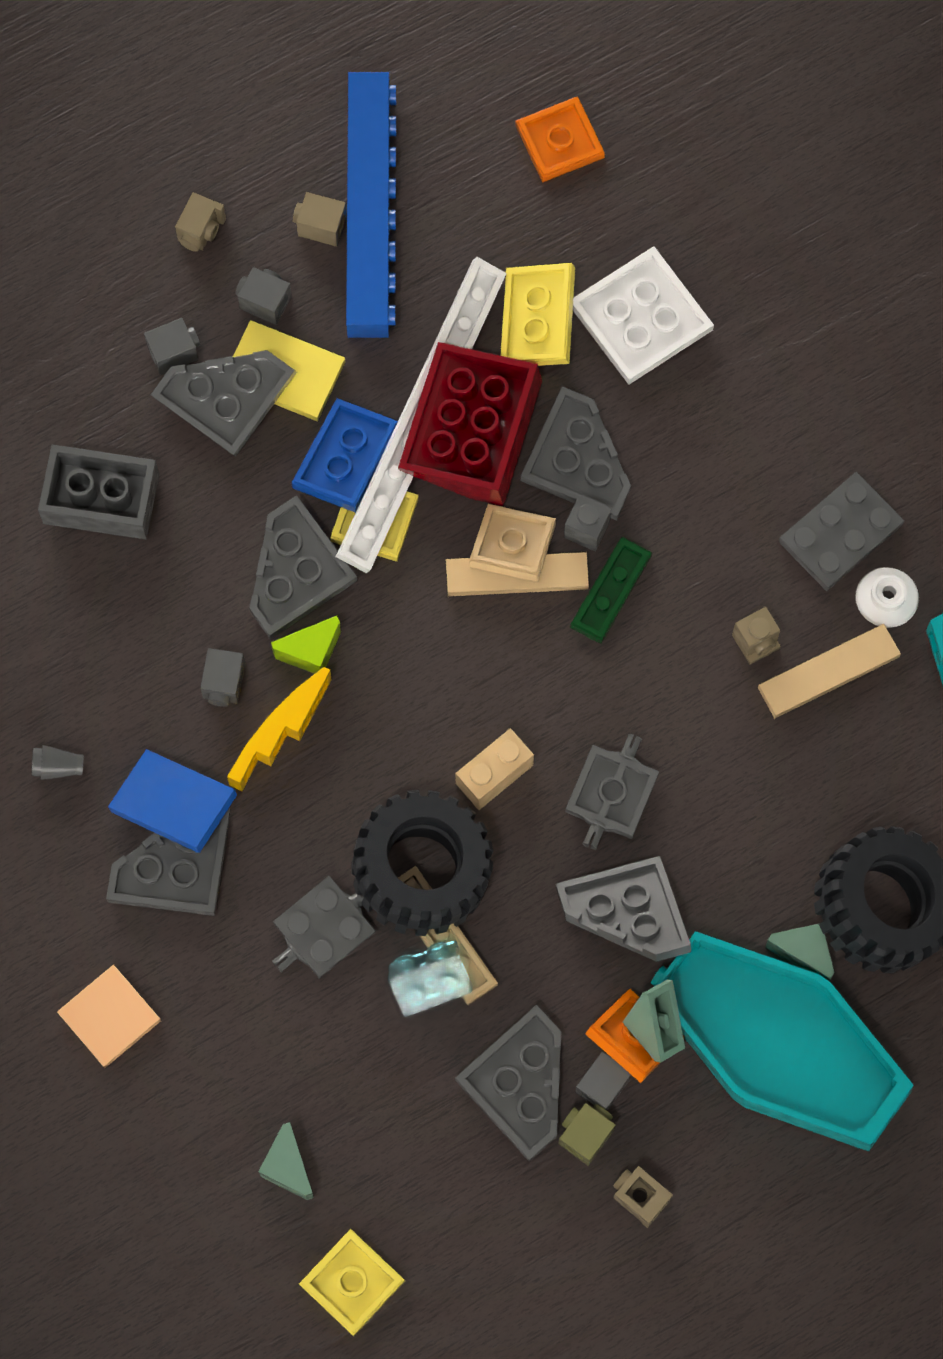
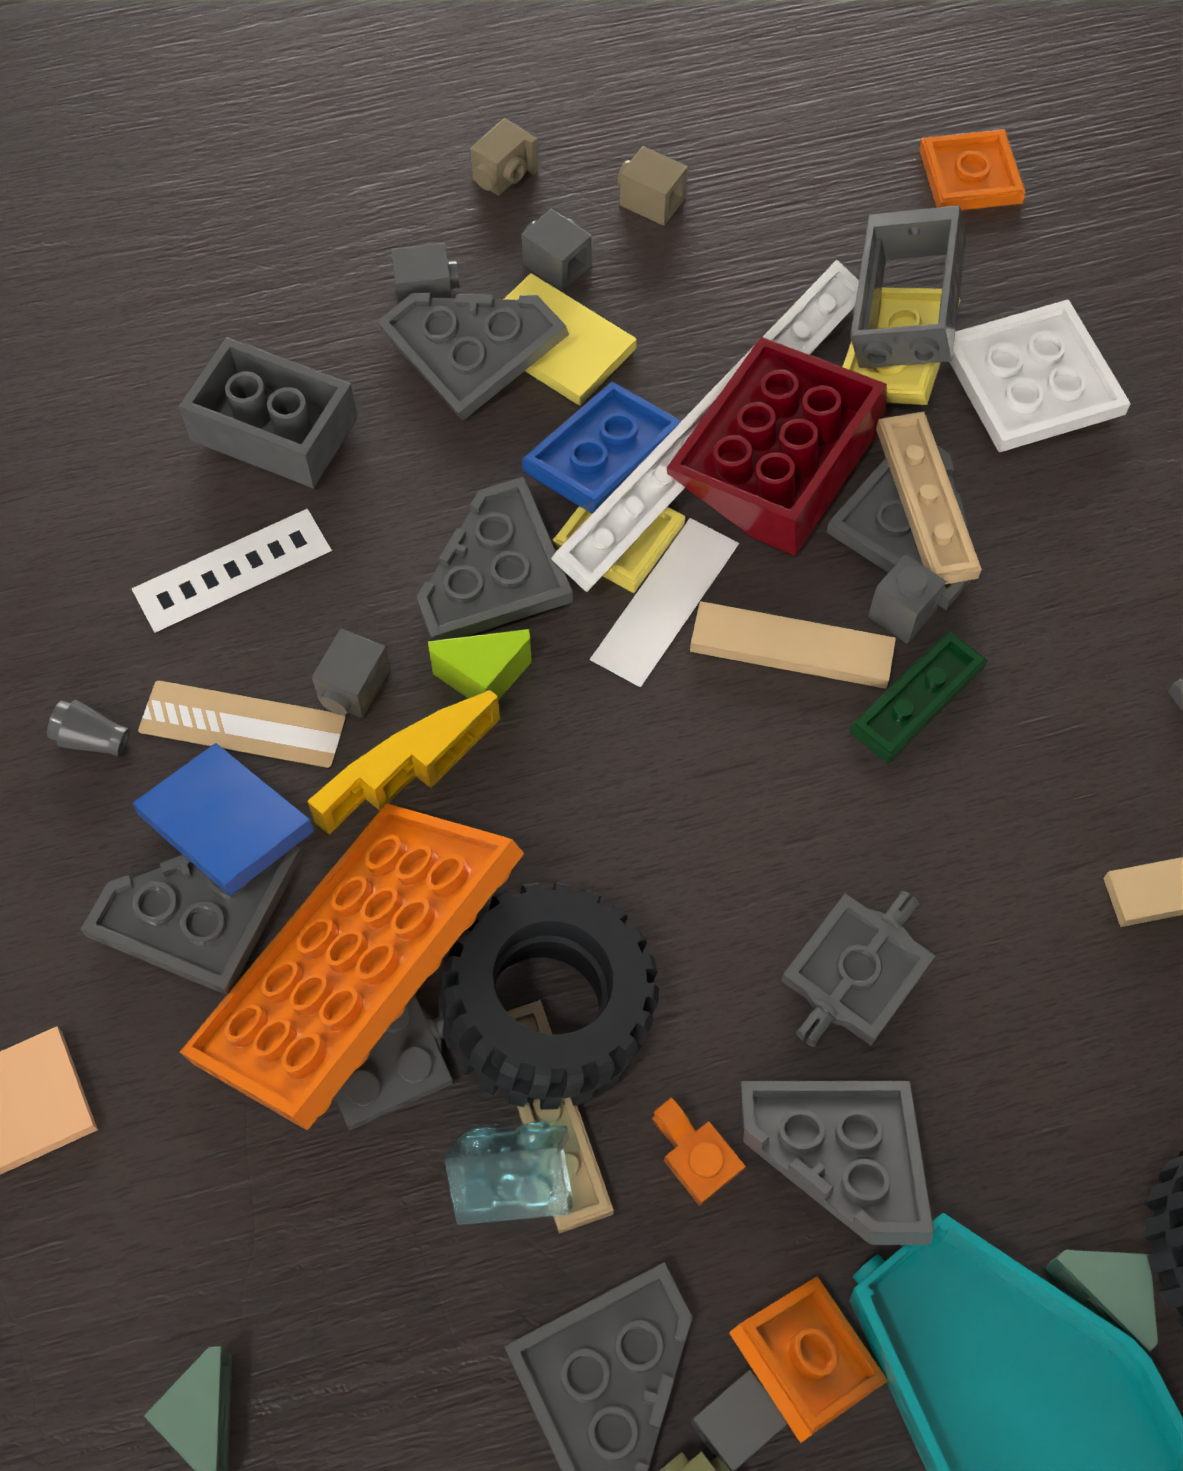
camera: 15 degrees right, 10 degrees down
(108, 617) = (231, 570): none -> white sticker
(156, 729) = (242, 724): none -> tan sticker
(292, 871) = (350, 960): none -> orange plate
(368, 205) = (714, 189): blue brick -> none
(420, 562) = (664, 602): none -> white sticker
(494, 769) = (693, 890): tan brick -> none
(512, 542) = (796, 601): tan tile -> none
(523, 226) = (891, 238): none -> dark grey window
(541, 937) = (700, 1157): none -> orange plate
(585, 441) = (928, 497): none -> tan tile
(657, 1022) = (850, 1347): sand green slope -> none
(757, 635) = (1119, 801): dark tan brick -> none

